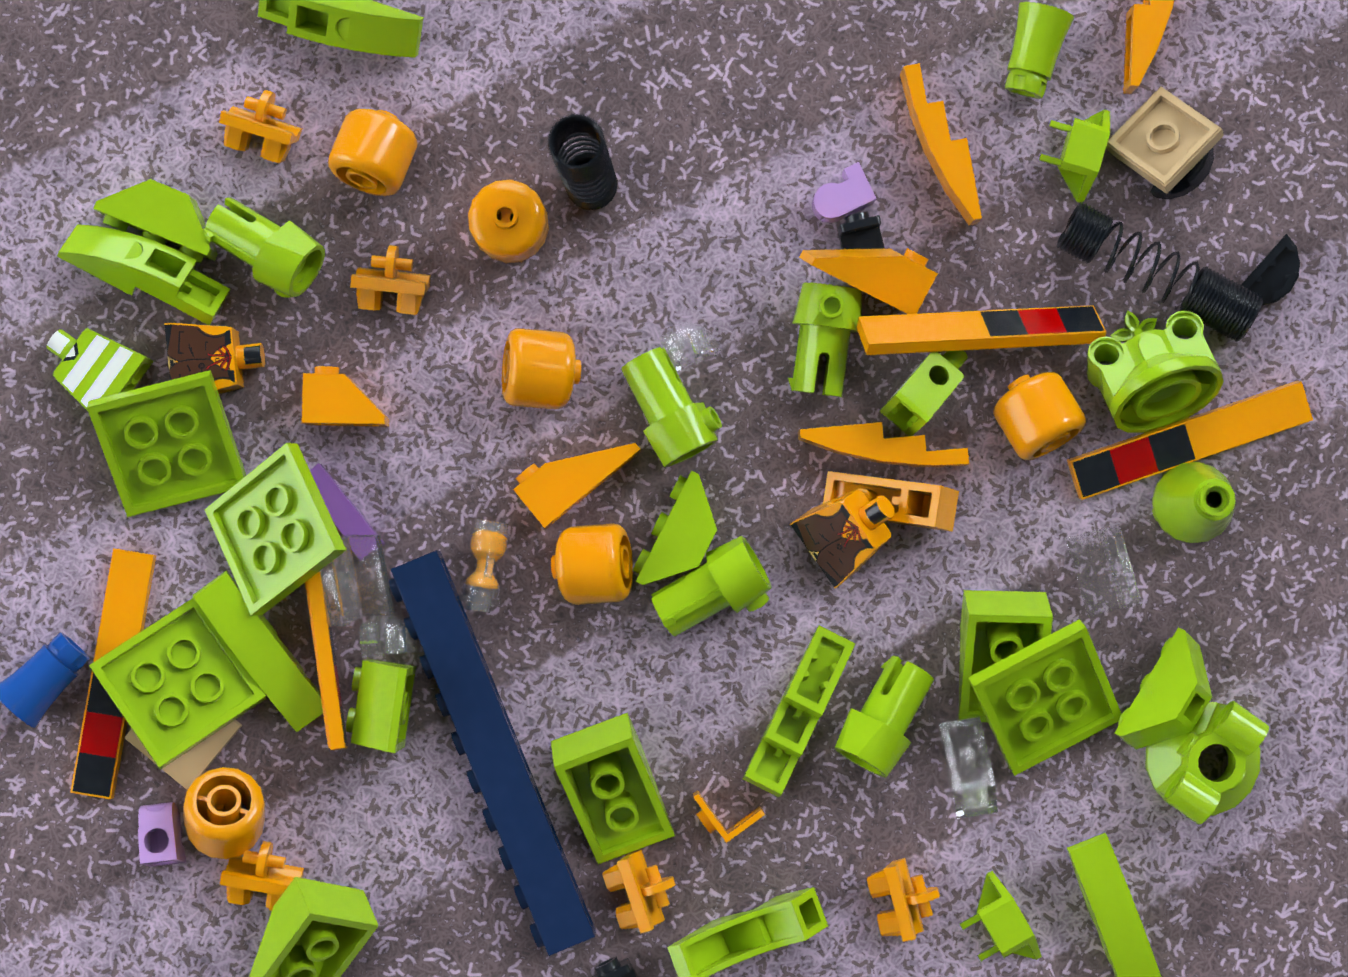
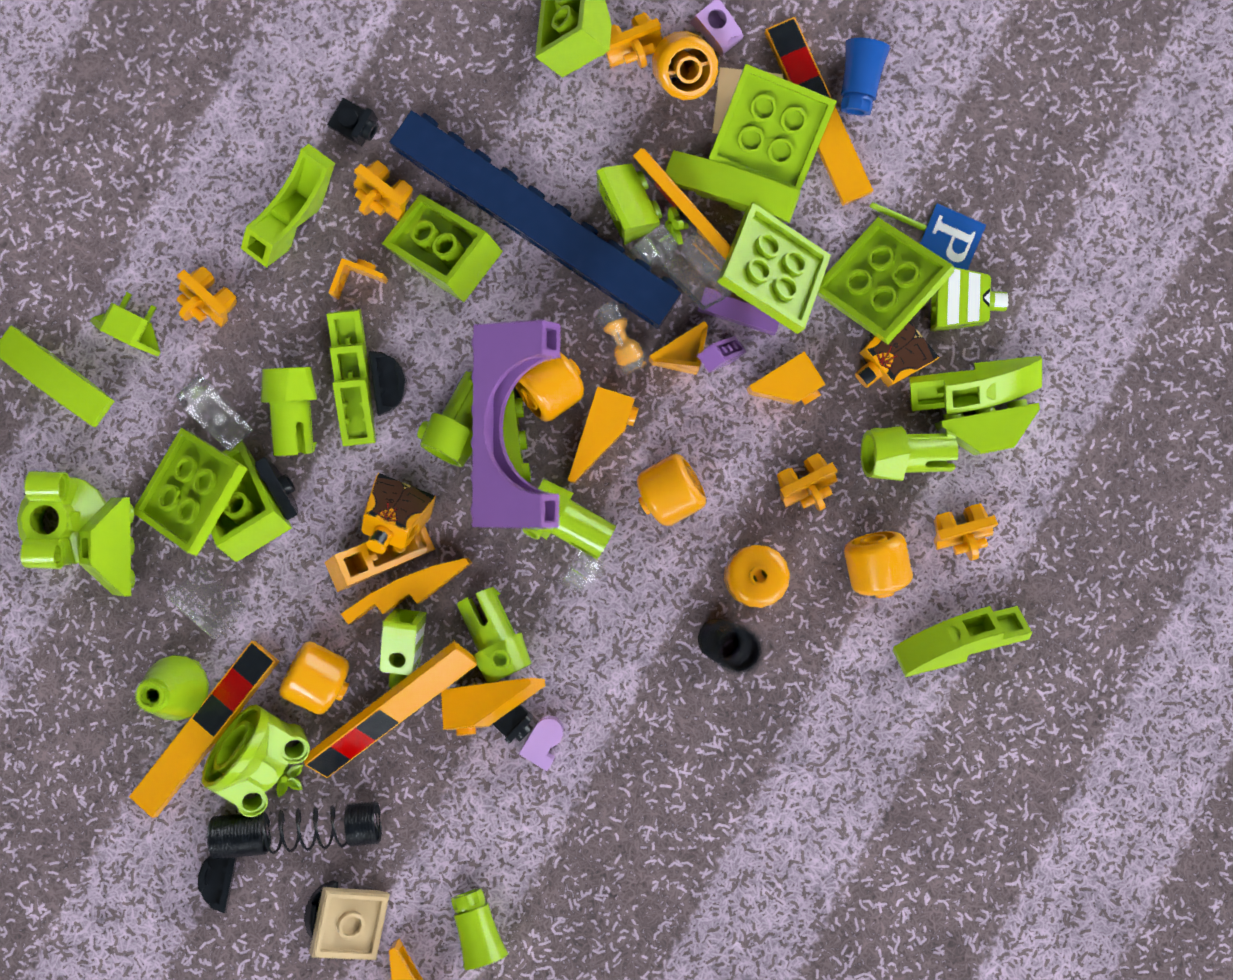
camera: 150 degrees right, 0 degrees up
(67, 448) = (946, 234): none -> blue piece
(348, 649) = (675, 224): none -> lime plant
(390, 474) = (721, 353): none -> medium lavender piece
(427, 504) = (683, 351): none -> light orange slope
(719, 478) = (499, 361): none -> medium lavender arch
(762, 681) = (388, 382): none -> black plate
(947, 158) = (488, 813): light orange slope -> none
(949, 640) = (279, 487): none -> black plate
(1081, 152) = (400, 879): lime piece -> none

